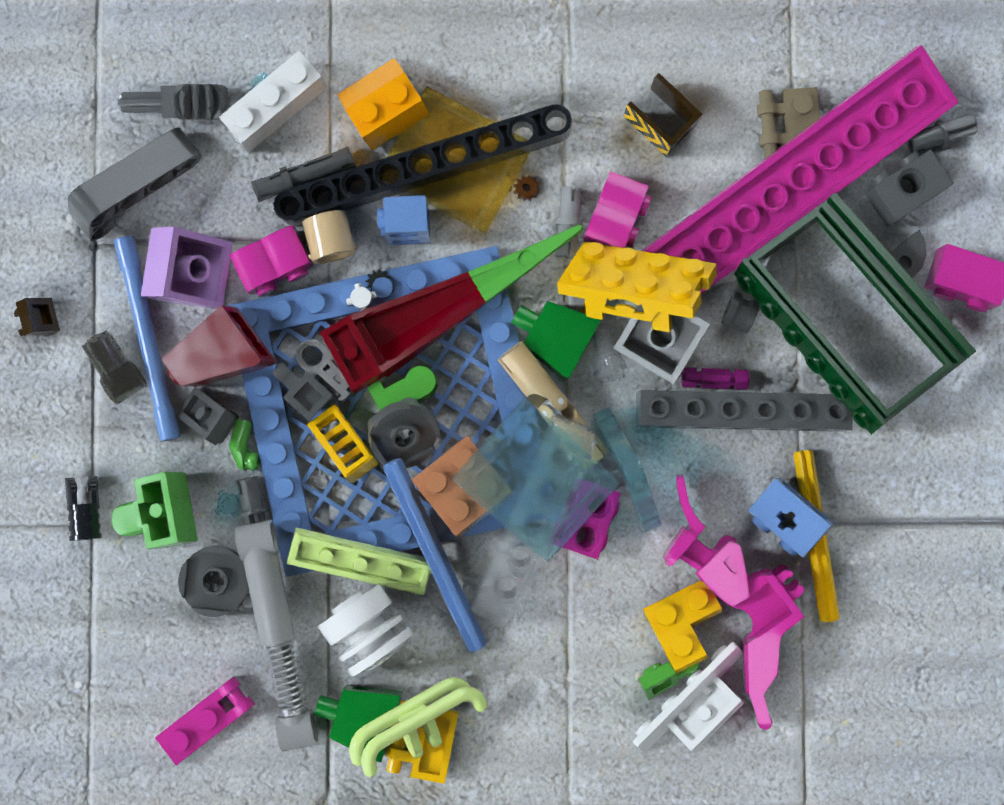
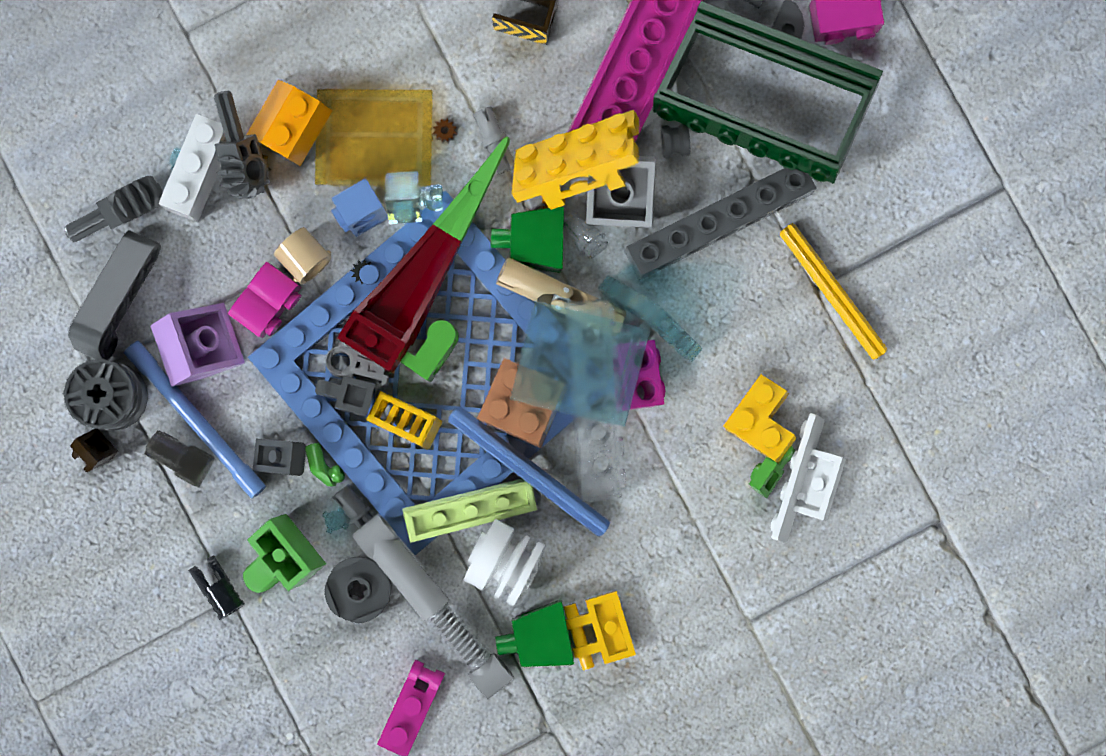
camera: 25 degrees left, 0 degrees up
(94, 275) = (124, 399): none -> dark grey wheel
(217, 350) = (259, 397): slope -> none
(303, 173) = (249, 219): dark grey pin -> none
(319, 111) = (240, 155): none -> dark grey gear
(361, 297) = (355, 291): white piece -> none
(398, 417) = (436, 376): dark grey plate -> none
(409, 718) = (577, 615): yellowish green piece -> none
(441, 168) = (354, 139): black beam -> none
(456, 233) = (406, 197): none -> clear light blue brick
(617, 212) = (530, 110): dark pink brick -> none
(715, 378) = (683, 206): magenta axle -> none
(758, 594) = (811, 363): dark pink piece -> none
(810, 521) = (822, 281): medium blue brick -> none

